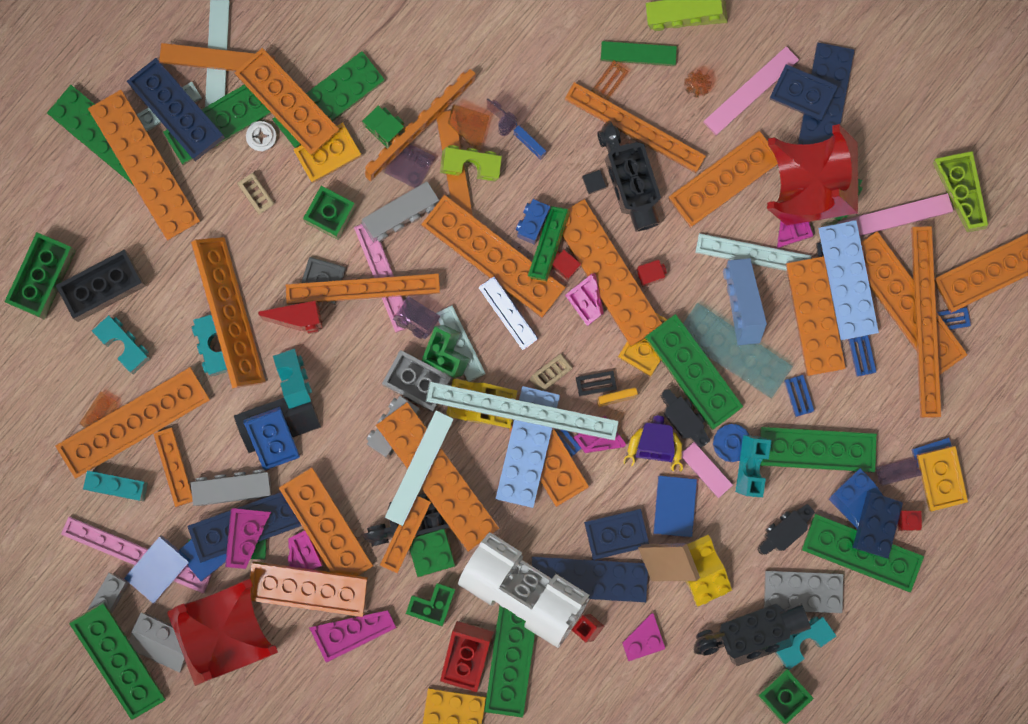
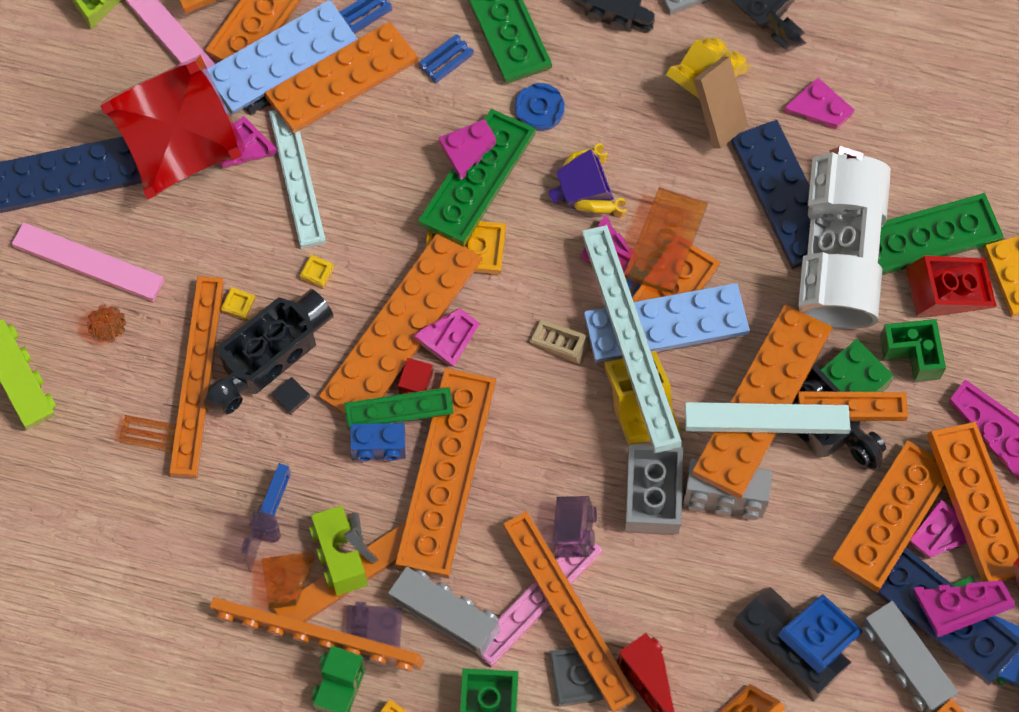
camera: 115 degrees left, 15 degrees down
(296, 389) = (715, 657): teal arch -> none
(441, 352) = (606, 471): green brick -> none
(463, 346) = (577, 464): light aqua tile -> none
(468, 174) = (355, 537): none -> dark grey piece
(508, 312) = (509, 421): tile -> none
(587, 476) = (665, 240): none -> clear orange tile
(596, 391) = (558, 302): black tile -> none
(616, 534) = (715, 180): dark blue plate -> none
(617, 397) = (553, 246): light orange tile -> none
(638, 53) = (95, 415): green tile -> none
(651, 273) = (377, 277): red brick -> none
(675, 176) = (238, 303): none -> yellow tile
(675, 237) = (317, 271): none -> yellow tile
(675, 506) = (647, 136): blue tile -> none
(684, 419) = (538, 168): black hinge -> none
(706, 470) = (587, 119): bright pink tile -> none
(718, 374) = (467, 146): none -> dark pink wing
(724, 179) = (217, 243): orange plate -> none
(745, 301) = (363, 152): medium blue wedge -> none
(749, 362) = (422, 162): clear light blue plate -> none
(749, 479) = (576, 65): teal arch -> none
(803, 92) = (66, 194): dark blue plate -> none

